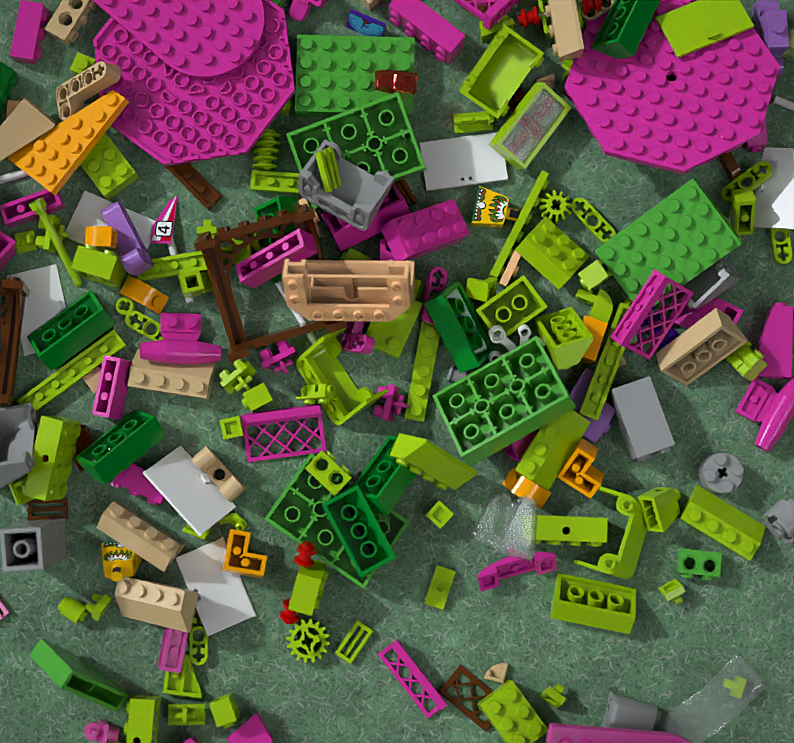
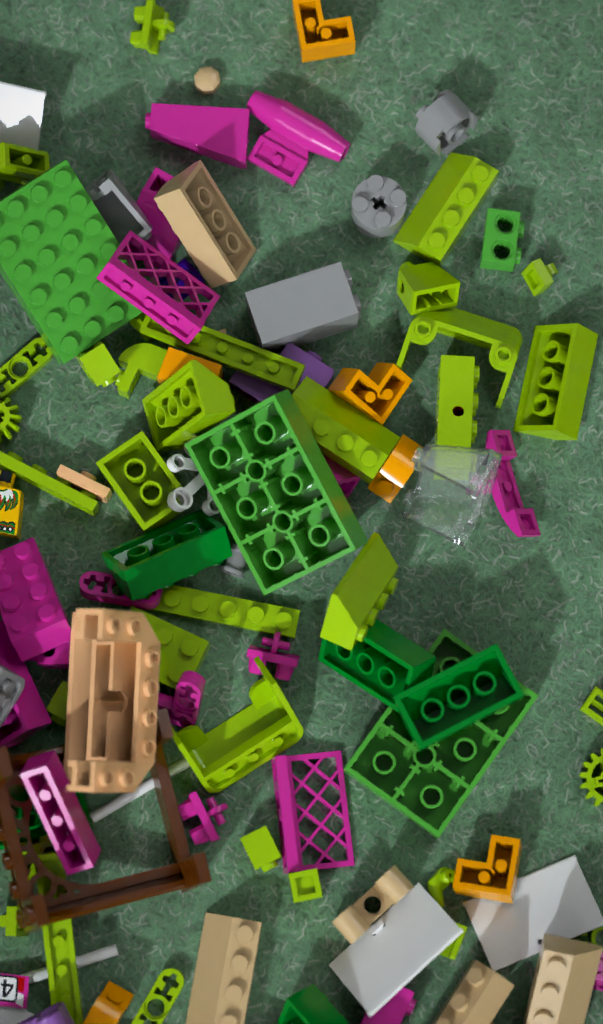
camera: 85 degrees left, 5 degrees down
(180, 342) = (177, 962): dark pink plate -> none
(195, 283) = (90, 937): lime brick -> none
(239, 378) = (233, 875): lime hips -> none
(308, 585) = (534, 775): lime brick -> none
(317, 393) = (260, 749): lime hinge -> none
(325, 476) = (379, 745): lime brick -> none
(439, 514) = (432, 589): lime panel -> none
(439, 587) = (534, 592): lime plate -> none
(481, 289) = (114, 523): lime panel -> none
(552, 253) = (65, 423): lime brick -> none
(747, 361) = (227, 163): lime brick -> none
(776, 251) = (71, 110): lime beam -> none

